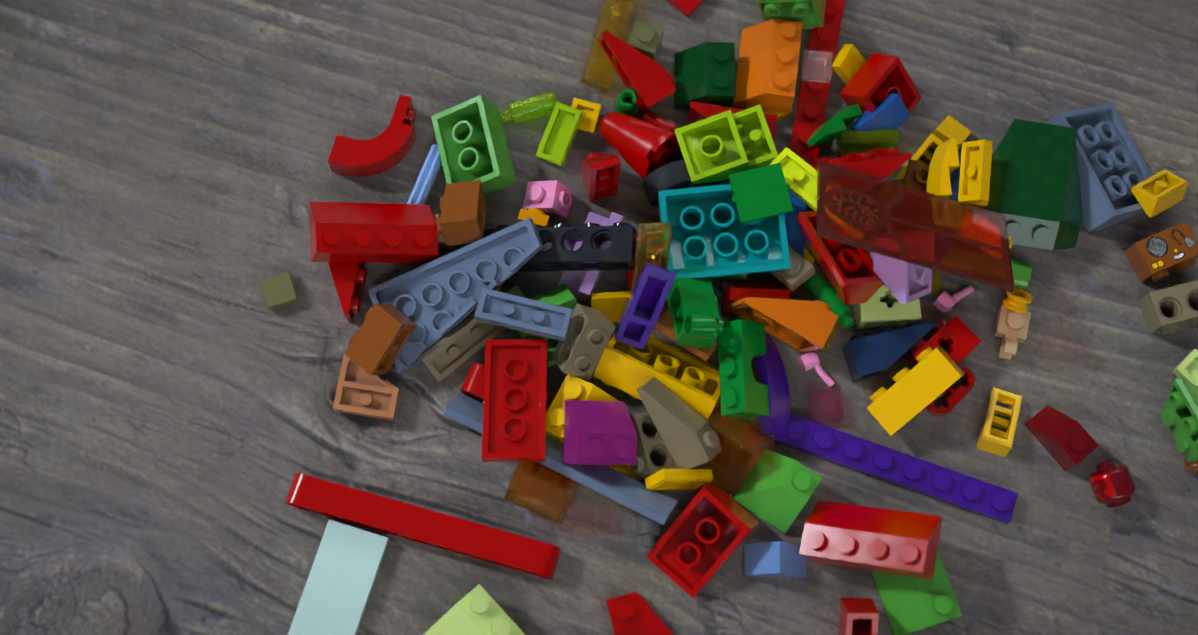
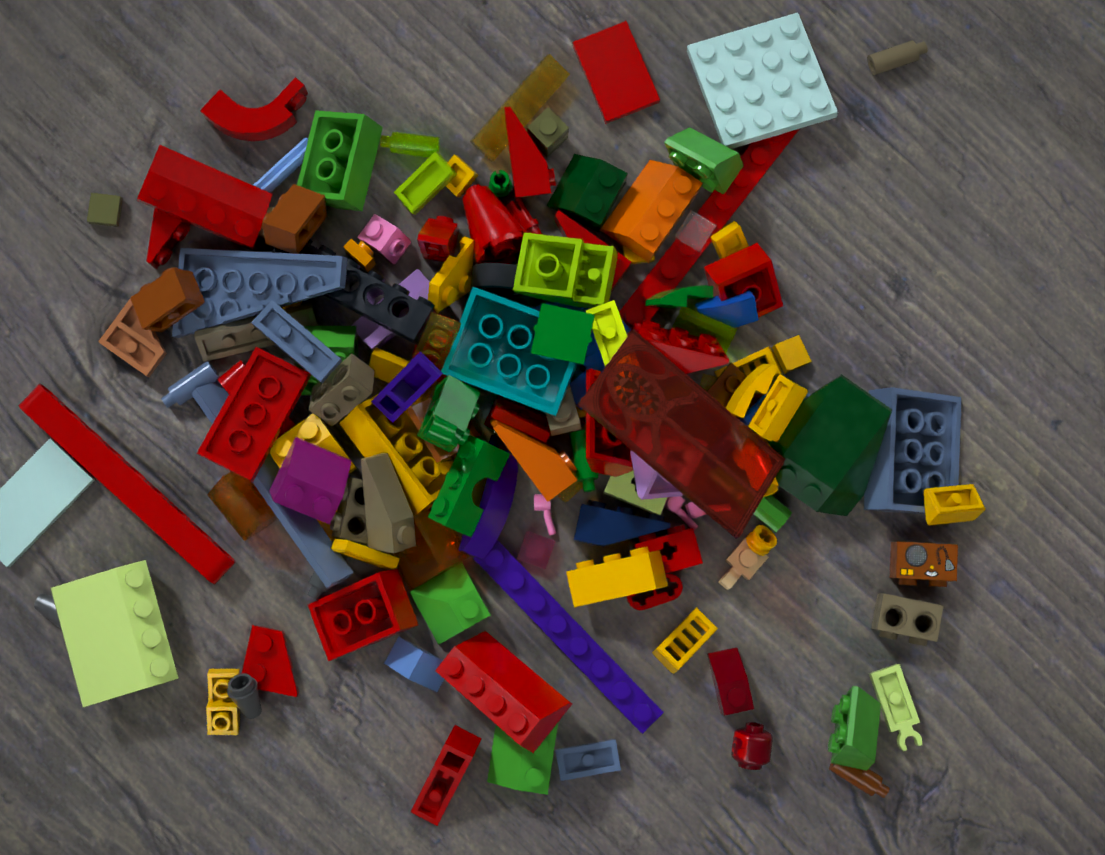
camera: 25 degrees right, 10 degrees up
(434, 411) = (183, 388): none -> sand blue cylinder
(630, 200) = (453, 278): none -> yellow wing
(927, 309) = (674, 505): none -> bright pink hand
(976, 569) = (588, 759): none -> sand blue plate

